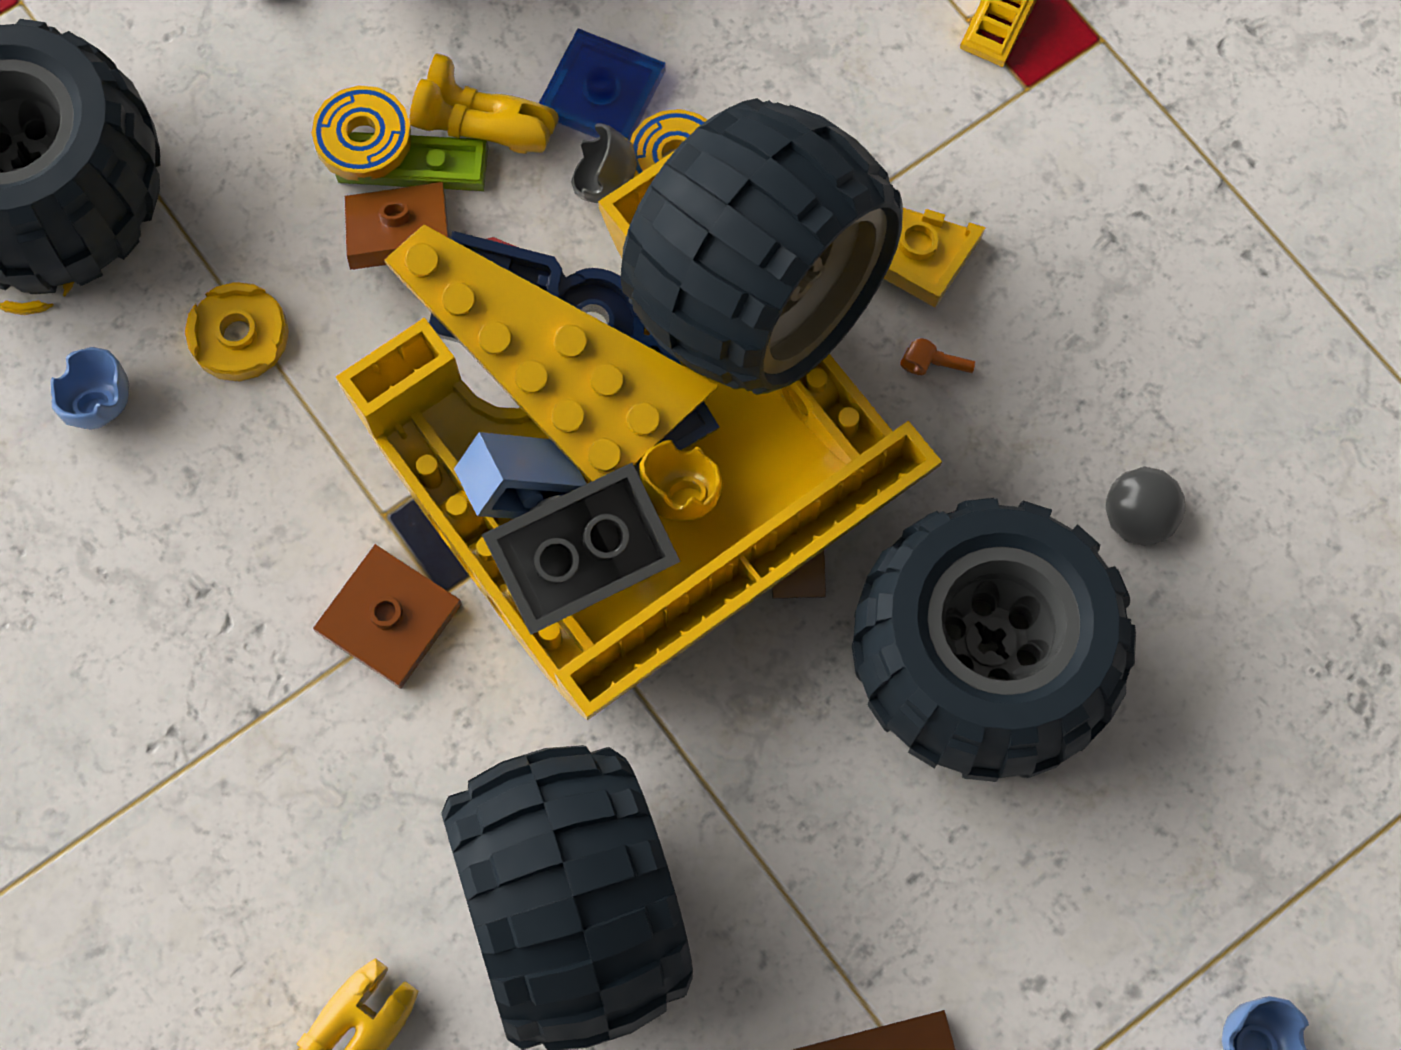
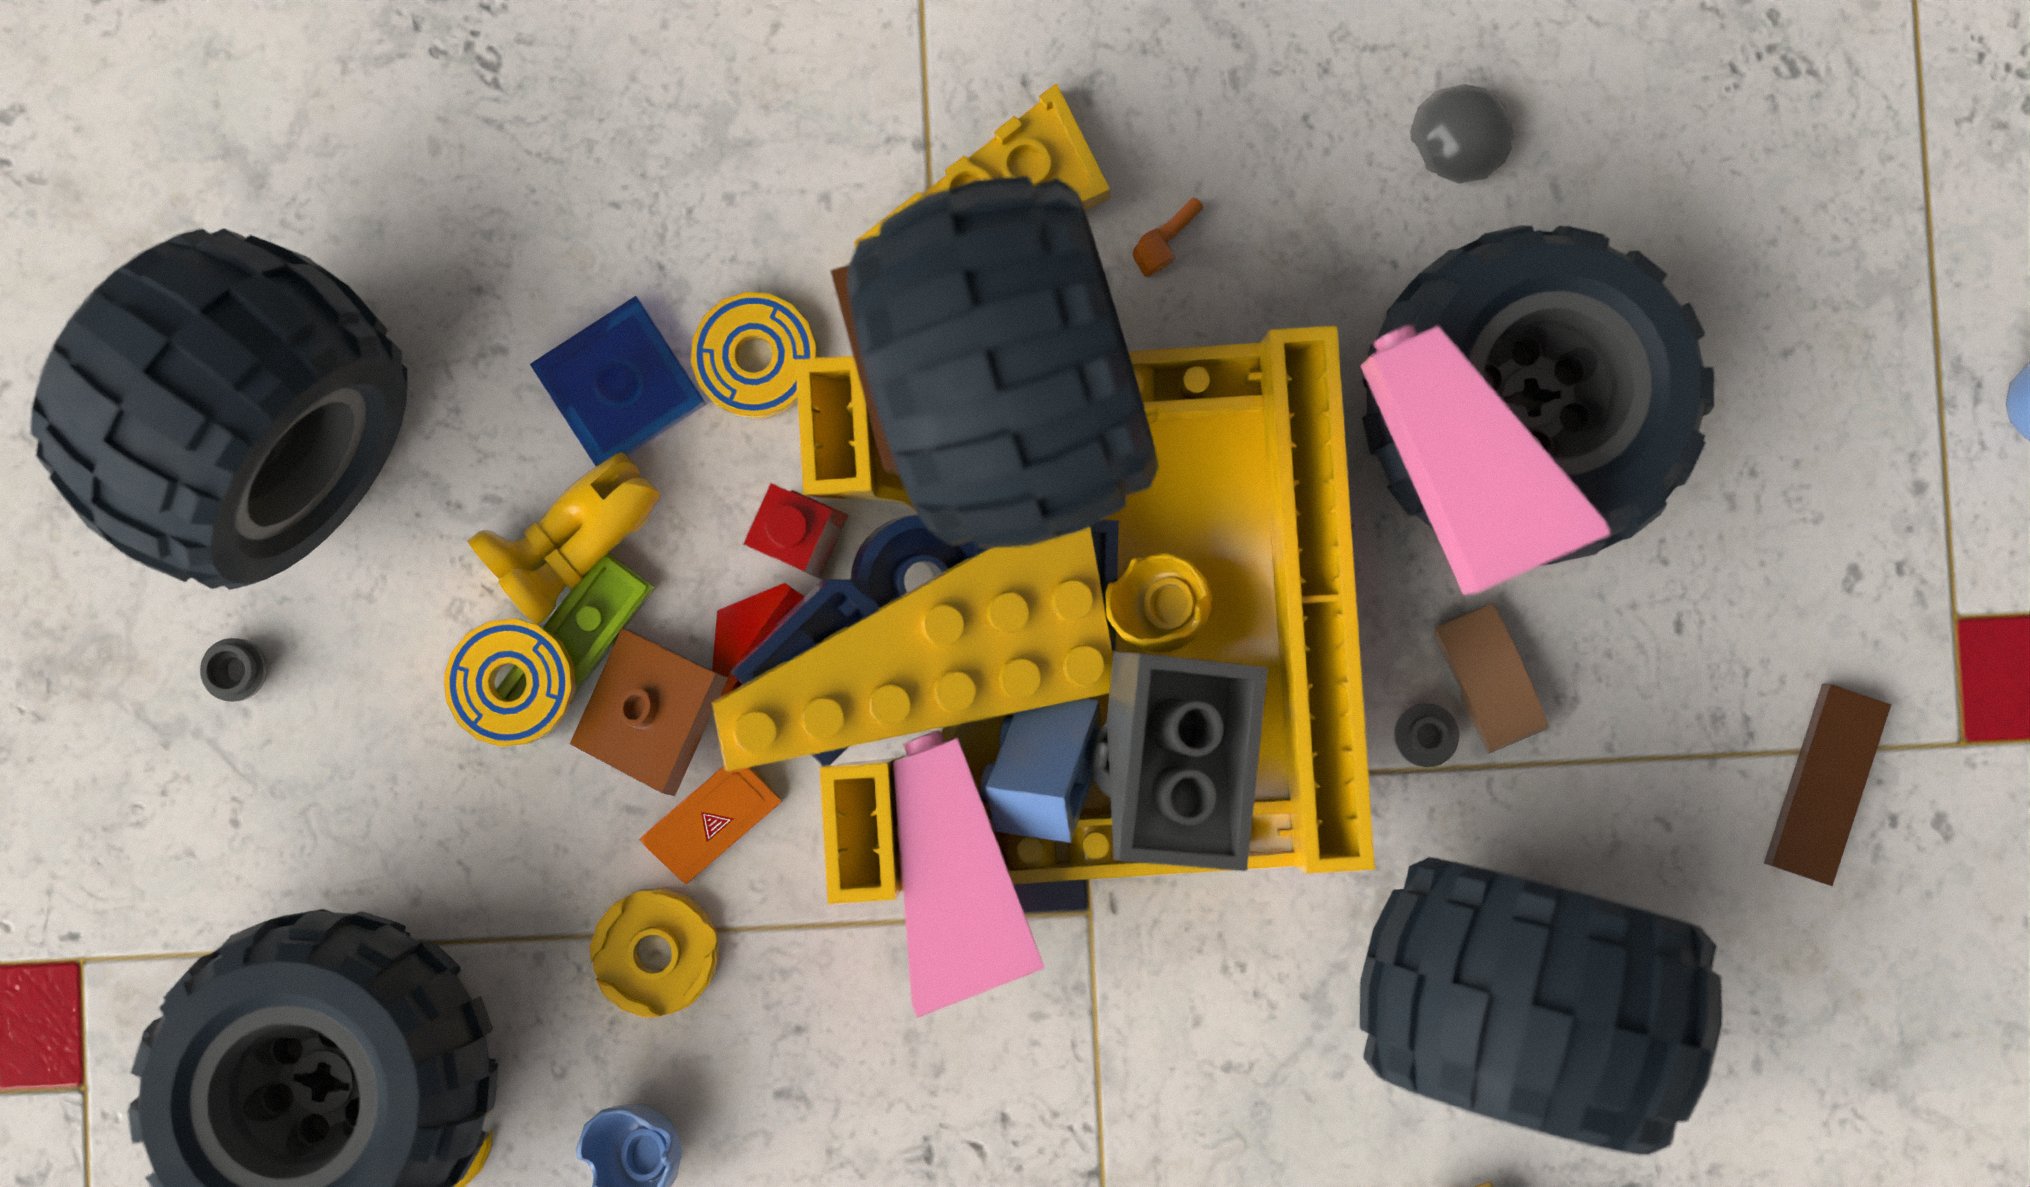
camera: 55 degrees left, 15 degrees up
(349, 308) = (710, 821): none -> orange slope
(387, 616) = (1088, 986): dark orange plate -> none
(403, 459) = (957, 891): none -> bright pink slope
(575, 227) = (796, 530): none -> red window
(605, 165) = (724, 444): dark grey hair -> none
(713, 758) = (1406, 735): none -> dark grey plate
(783, 761) = (1491, 678): none -> medium nougat slope
(899, 591) = (1474, 464): none -> bright pink slope

